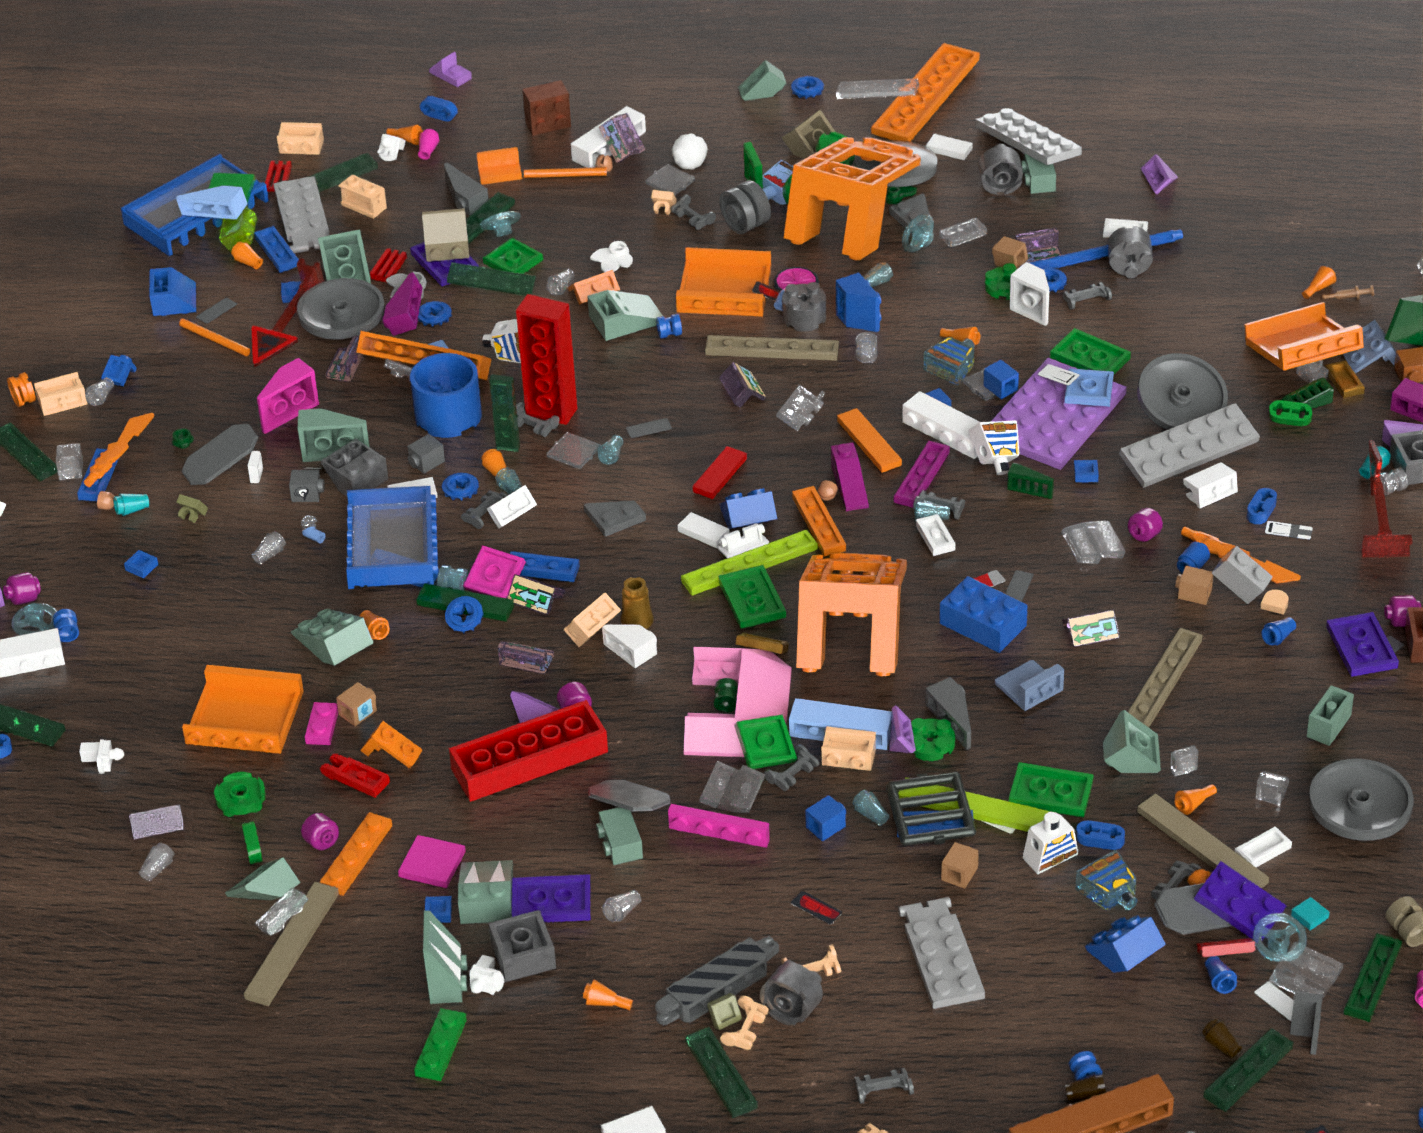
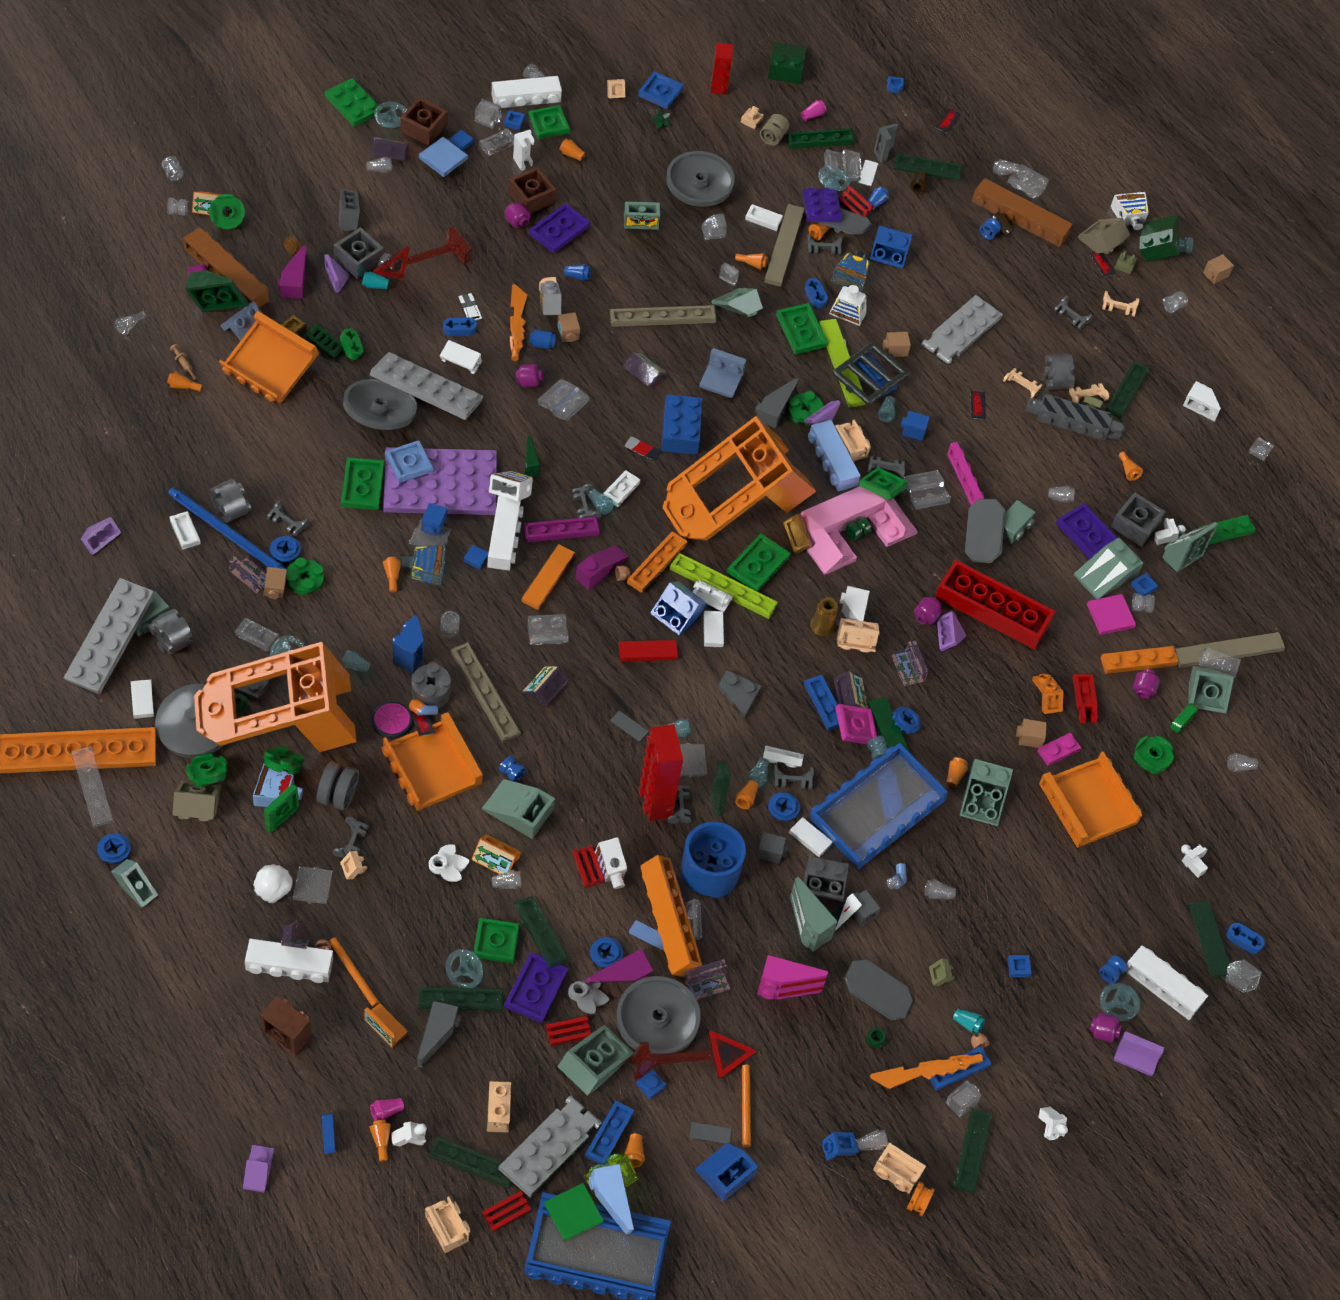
camera: 135 degrees left, 15 degrees up
(156, 821) = (1211, 789): clear purple panel -> none
(255, 467) = (872, 955): white tile -> none
(415, 893) = (1143, 603): none -> clear wheel
(445, 235) = (529, 980): slope -> none
(1019, 585) = (631, 427): dark grey sticker -> none
(1030, 293) = (322, 539): white slope -> none
(1058, 374) = (409, 483): white sticker -> none
(1086, 471) = (494, 432): blue plate -> none
(1310, 913) = (797, 179): teal tile -> none

